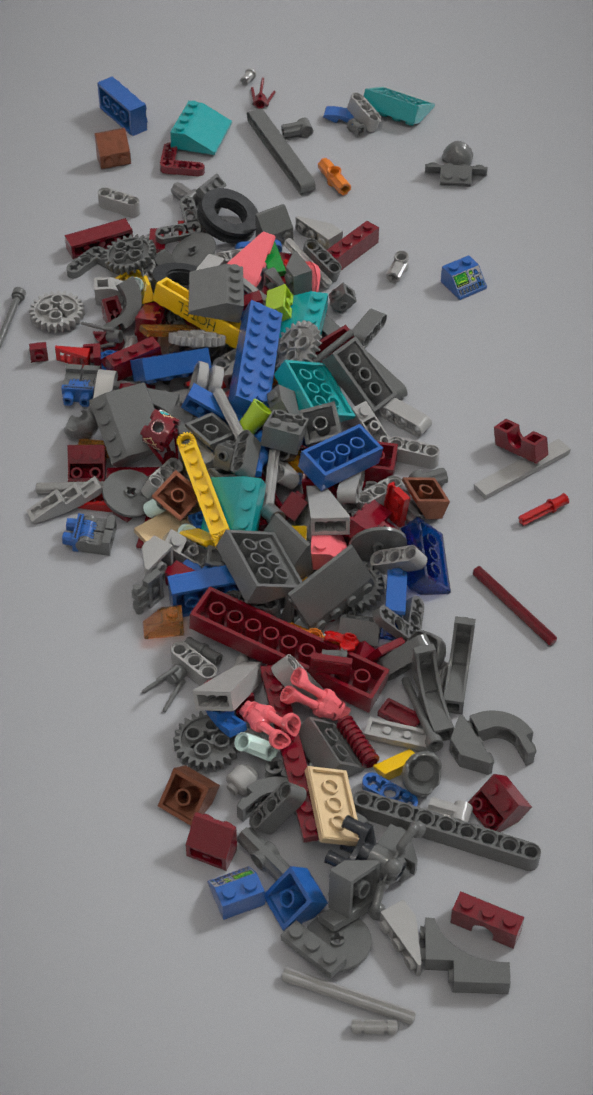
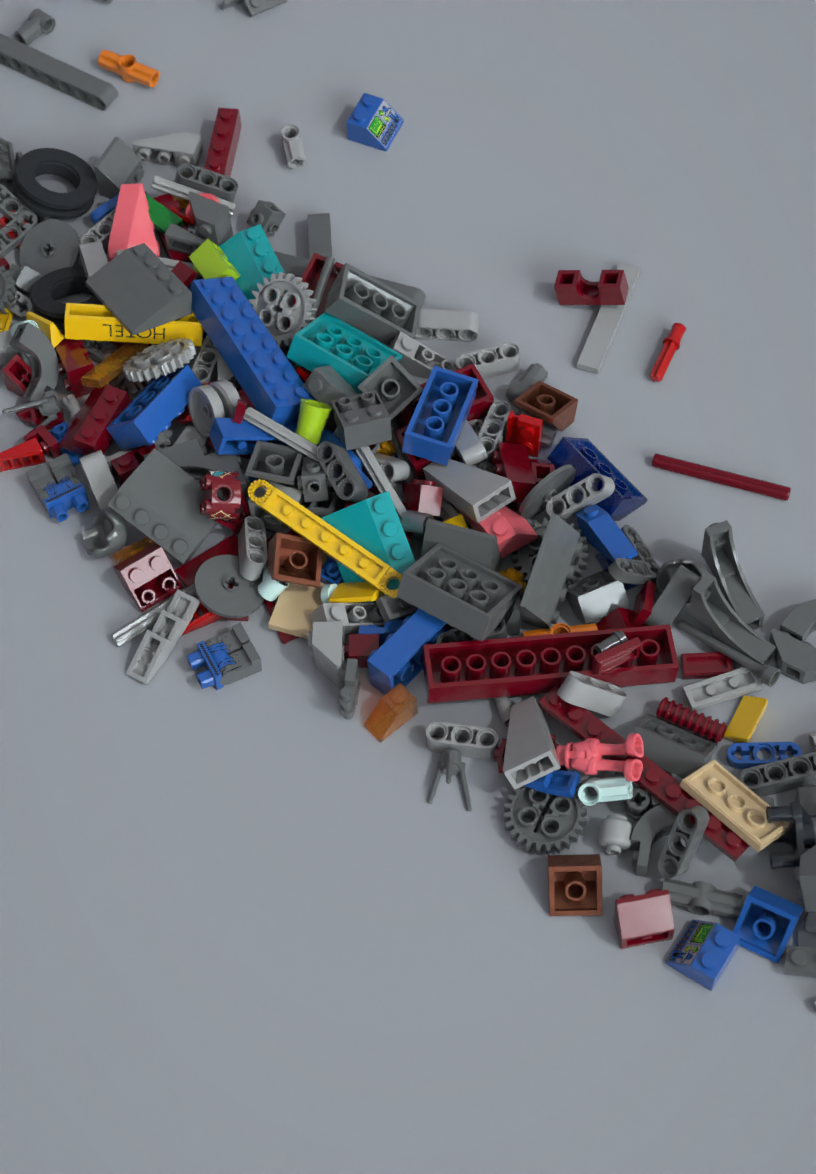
camera: 30 degrees left, 10 degrees up
(203, 648) = (470, 718): dark grey pin -> none
(212, 385) = (239, 411): none -> dark red tile
(327, 702) = (636, 702): coral piece -> none
(346, 641) = (600, 618): red plate -> none
(422, 773) = (783, 715): dark grey piece -> none

